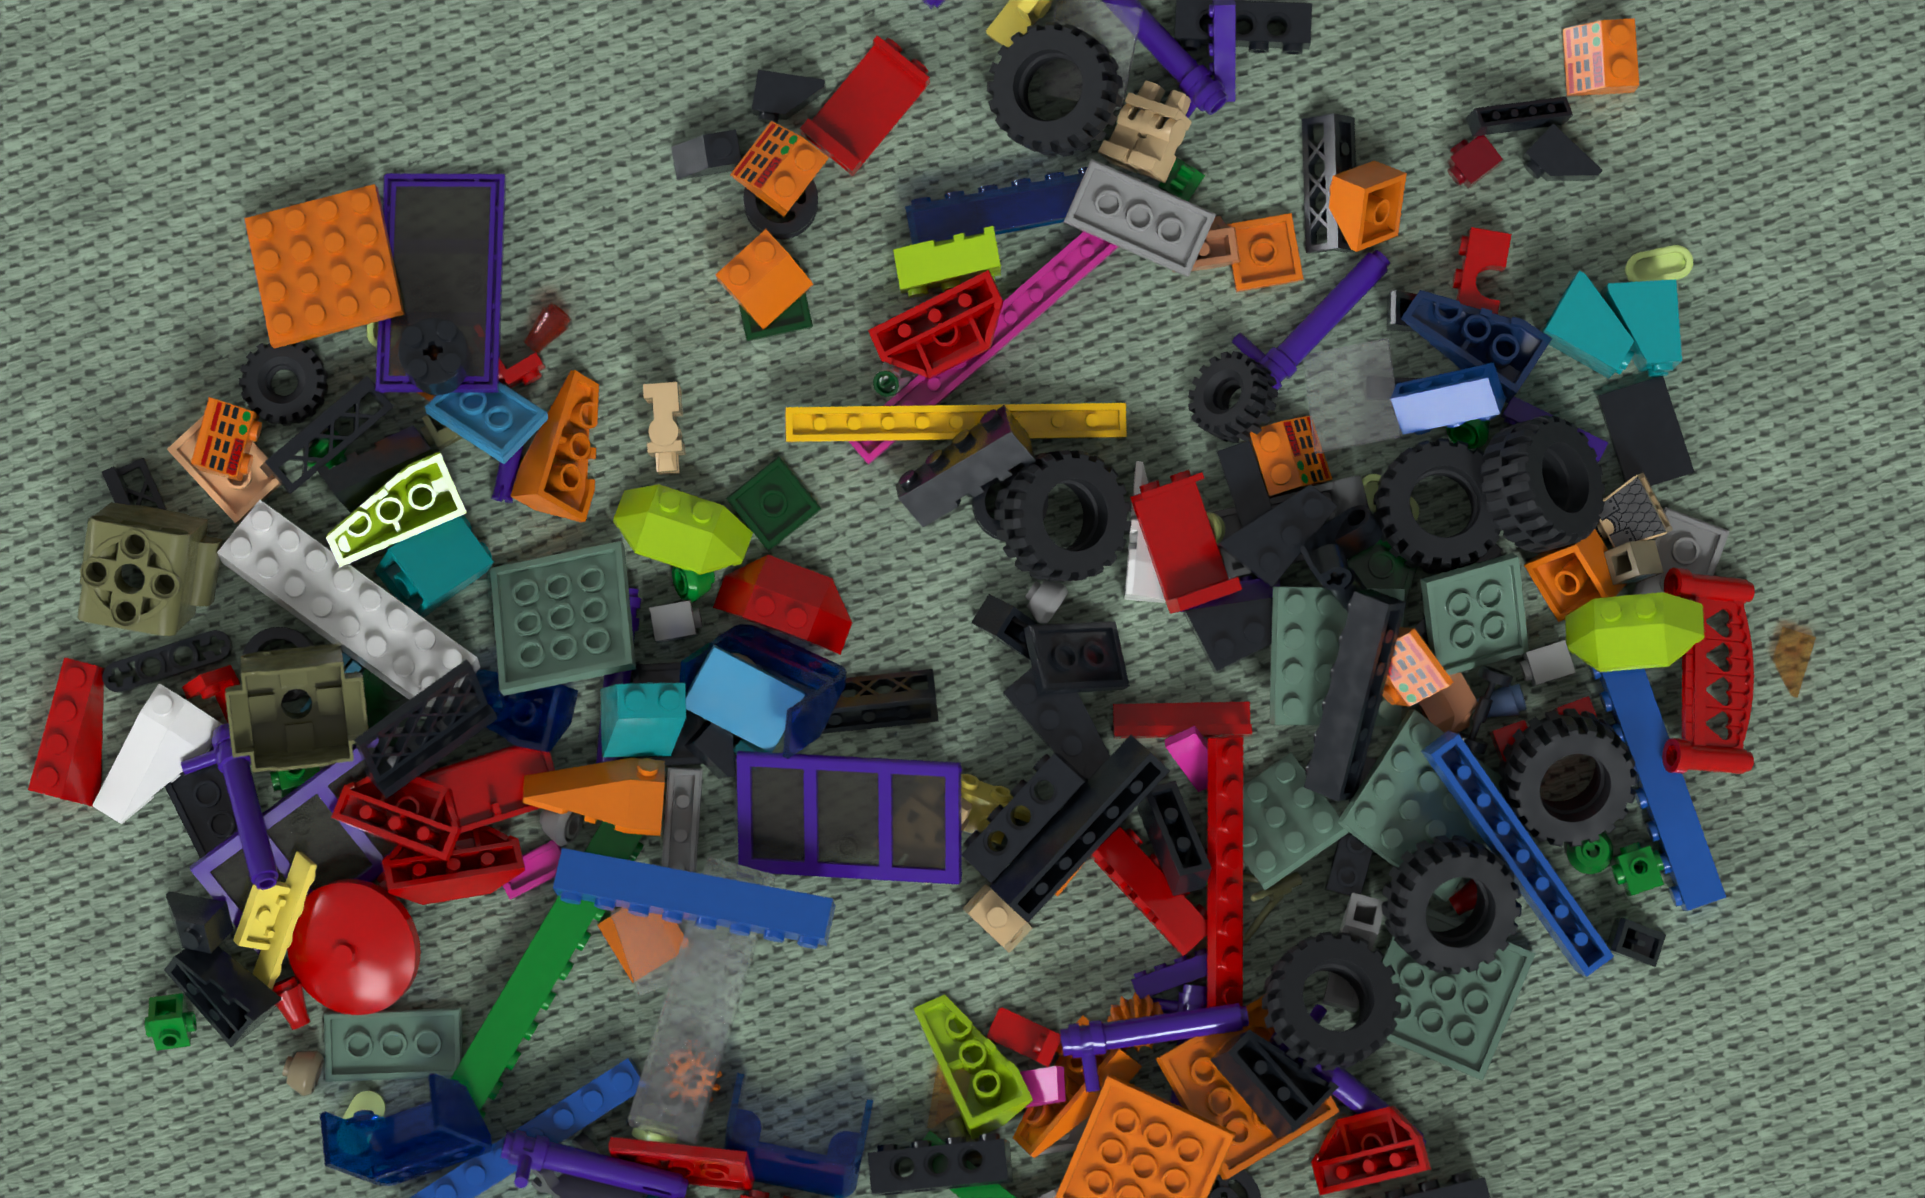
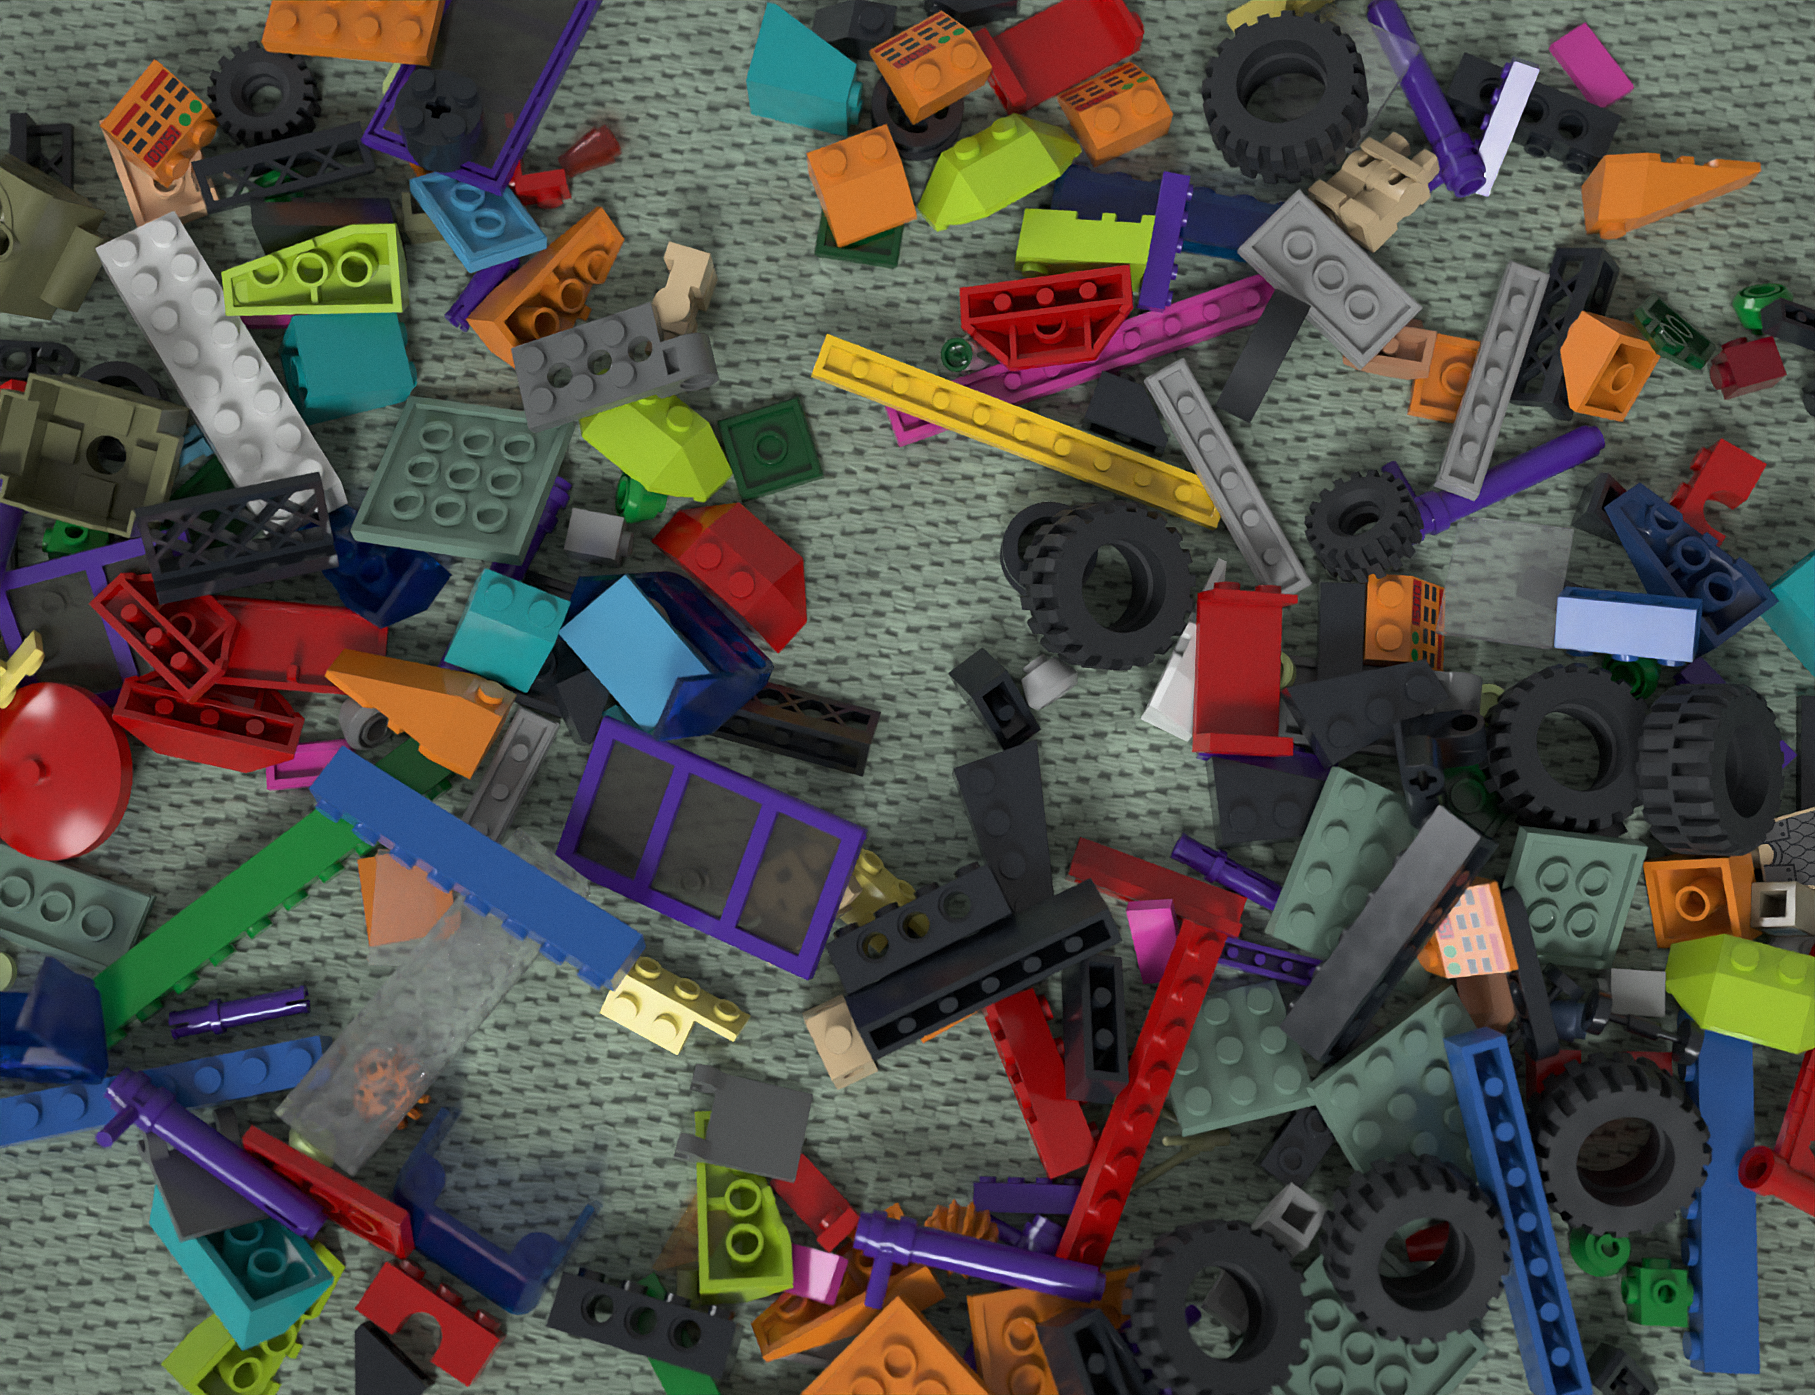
camera: 15 degrees right, 5 degrees down
(547, 1073) = (222, 1015): none -> dark purple pin
(683, 480) = (672, 367): none -> dark grey hinge
(686, 212) = (802, 77): none -> teal slope
(861, 226) = (995, 170): none -> lime wedge
(864, 942) = (667, 1007): none -> light yellow bracket
(929, 142) = (1116, 112): none -> orange slope
(956, 1002) = (749, 1127): none -> dark grey flag
(965, 466) = (1012, 484): black wedge -> none
(1007, 237) = (1165, 242): none -> dark purple piece
(1026, 376) = (1125, 414): none -> black slope
(1076, 657) = (1058, 761): black tile -> none
(1112, 298) = (1262, 355): none -> black tyre
(1121, 399) = (1226, 478): none -> light grey tile
(1182, 180) = (1396, 259): green tile -> none
(1226, 688) = (1226, 871): none -> dark purple pin
(1278, 742) = (1268, 962): none -> dark purple piece
(1288, 245) = (1491, 381): none -> light grey tile
(1344, 59) = (1641, 189): none -> orange wedge
(1408, 161) = (1672, 334): none -> dark green tile
(1463, 104) = (1752, 299): none -> green cone
(1464, 685) = (1527, 983): none -> black beam
(1524, 688) = (1686, 1041): none -> black wheel

